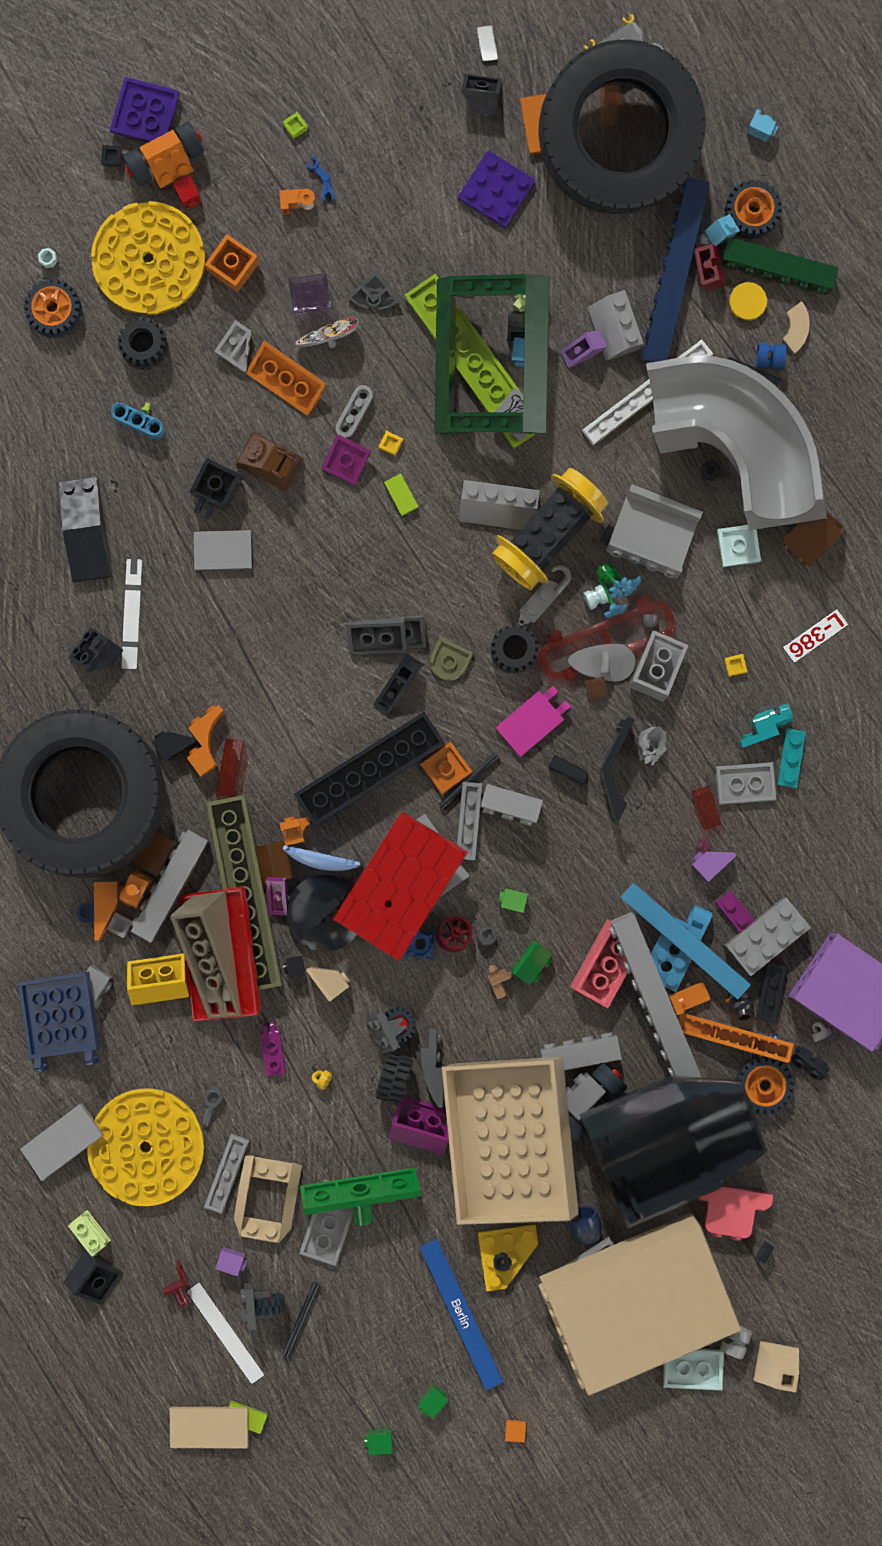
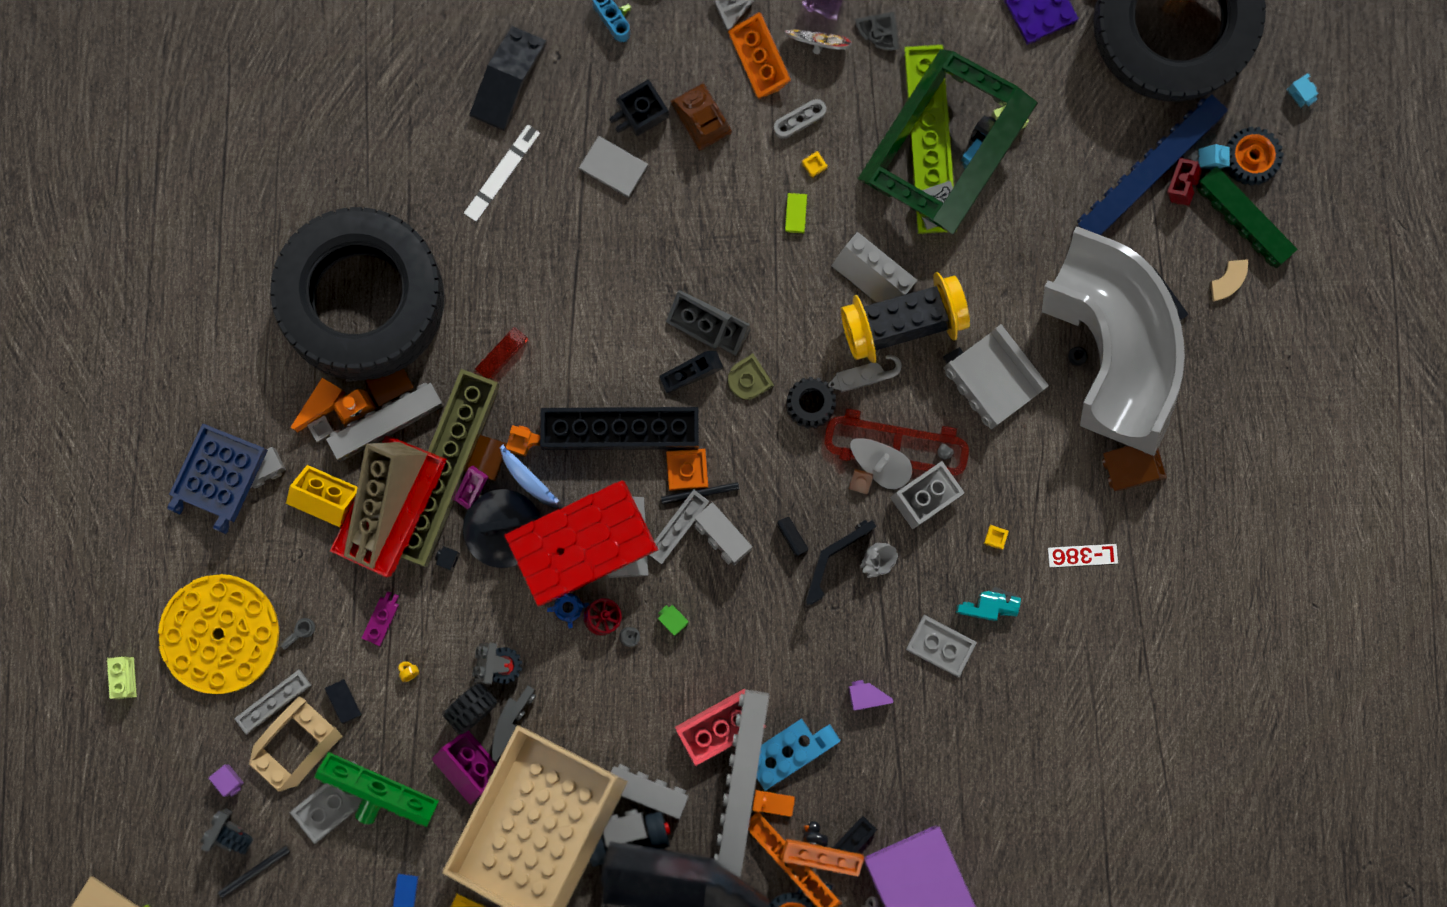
camera: 30 degrees right, 5 degrees down
(62, 1142) = (150, 583): light grey tile -> none
(86, 912) = (298, 400): dark blue tile -> none
(92, 1278) = (99, 719): black slope -> none
(95, 651) = (450, 184): black slope -> none
(172, 744) = (464, 303): black slope -> none
(177, 1287) = (165, 774): dark red bracket -> none
(201, 728) = (498, 305): orange arch -> none
(225, 1333) = (181, 842): white sticker -> none
(284, 1137) = (343, 701): none -> black slope
(329, 981) = (467, 590): tan slope -> none
(346, 459) = (767, 154): magenta tile -> none
(496, 978) = (615, 679): medium nougat piece -> none
(531, 963) = (654, 684): green slope -> none
(532, 721) = (787, 475): dark pink tile -> none
(583, 348) = (1032, 184): medium lavender slope -> none
(595, 597) = (907, 402): light aqua wheel -> none
(607, 575) = (932, 389): plant -> none
(617, 325) = (1071, 182): light grey slope -> none
(632, 403) = (1038, 257): white tile -> none
(685, 940) = (801, 749): dark azure tile -> none
(703, 843) = (870, 675): clear pink piece -> none
(706, 807) = (893, 645): clear red slope -> none
(734, 911) = (861, 752): magenta plate -> none
(738, 546) = (1062, 435): light aqua tile -> none
(747, 301) = (1200, 231): yellow tile -> none
(757, 1017) = (822, 857): none -> orange plate
(767, 936) = (876, 792): light grey brick -> none
(777, 357) = (1196, 294): blue wheel -> none
(791, 758) = (995, 648): teal plate -> none

